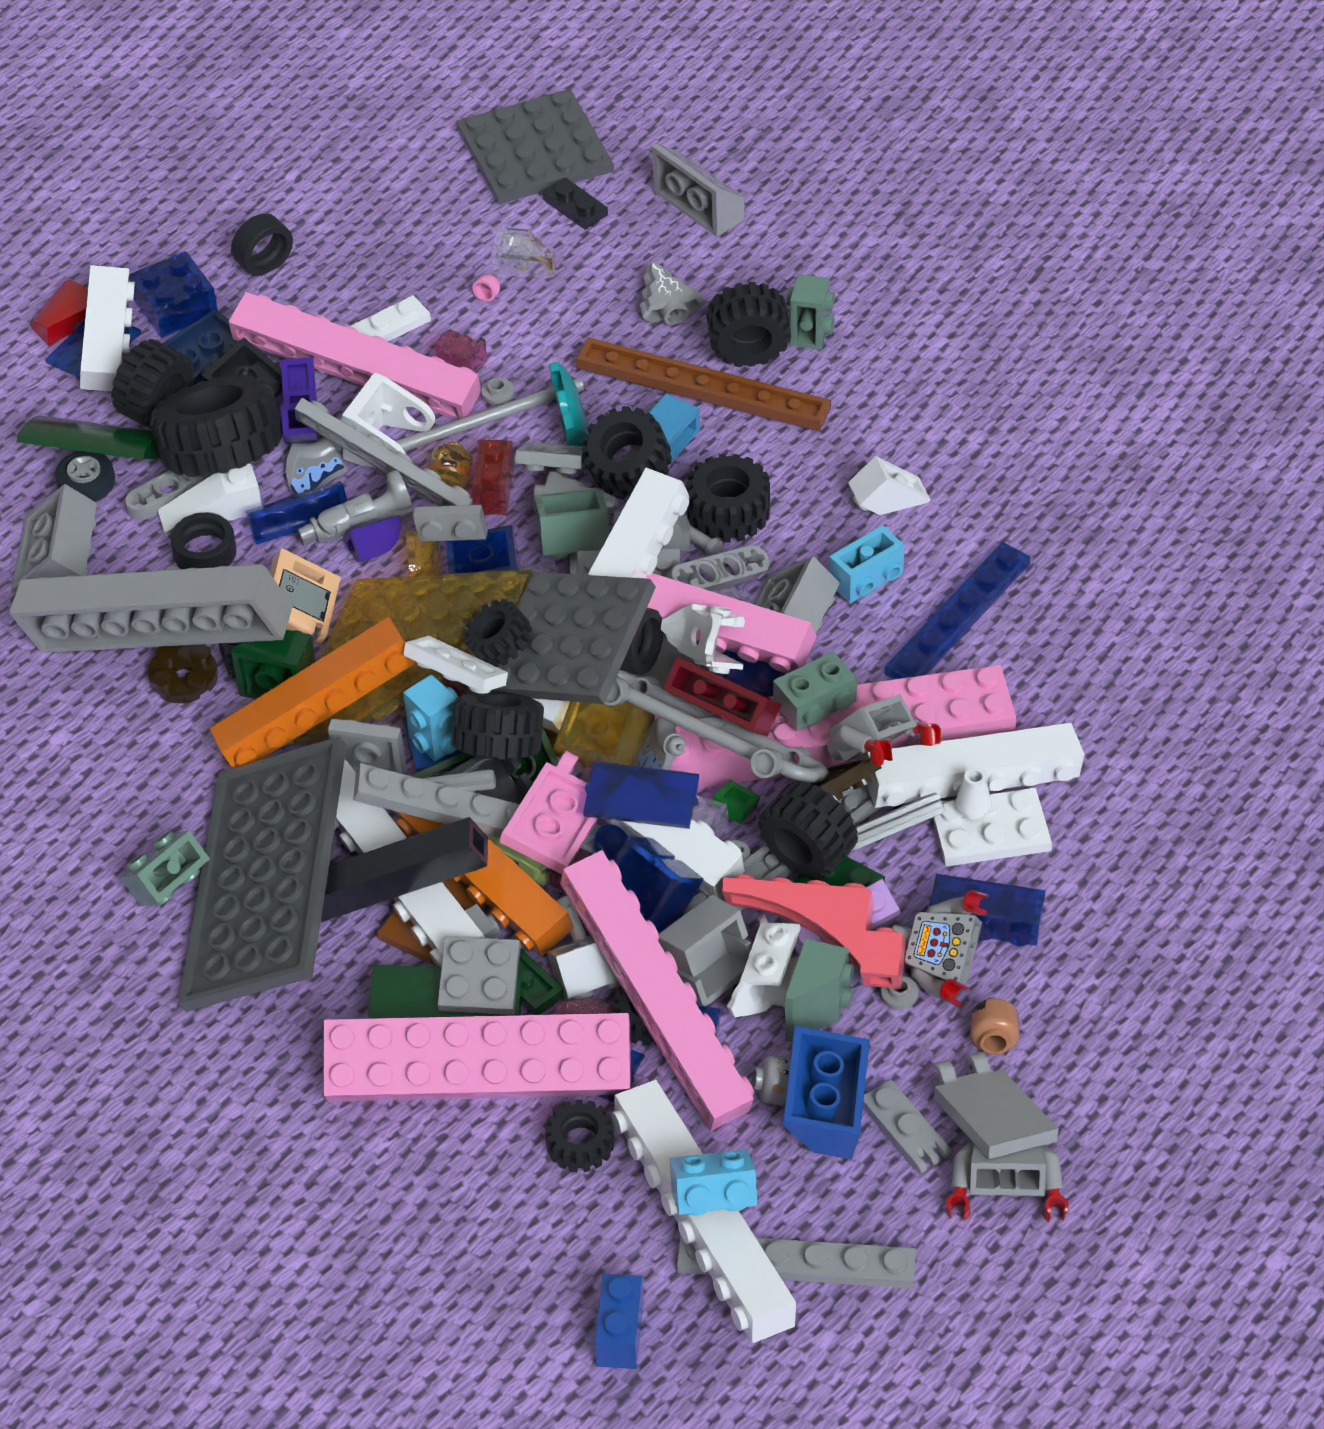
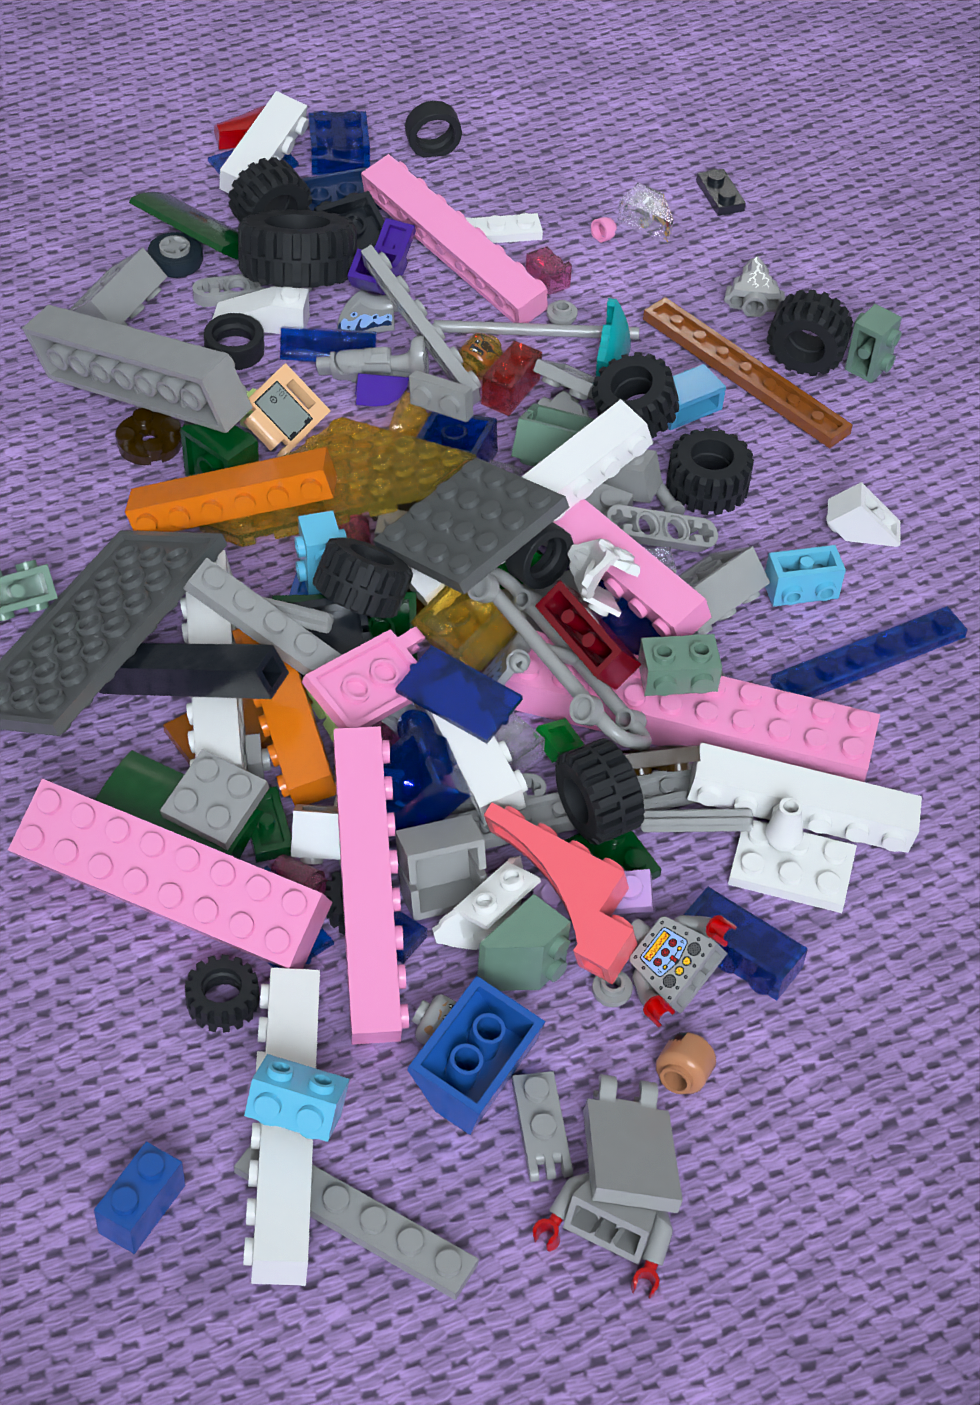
camera: 20 degrees right, 0 degrees up
(370, 744) = (253, 558): light grey plate -> none
(384, 403) = (442, 284): white hose -> none
(455, 664) = (357, 510): white plate -> none
(512, 631) = (408, 495): black tyre -> none
(534, 146) = (713, 135): dark grey plate -> none
(695, 191) = (829, 214): light grey slope -> none
(874, 727) = (719, 719): light grey torso -> none

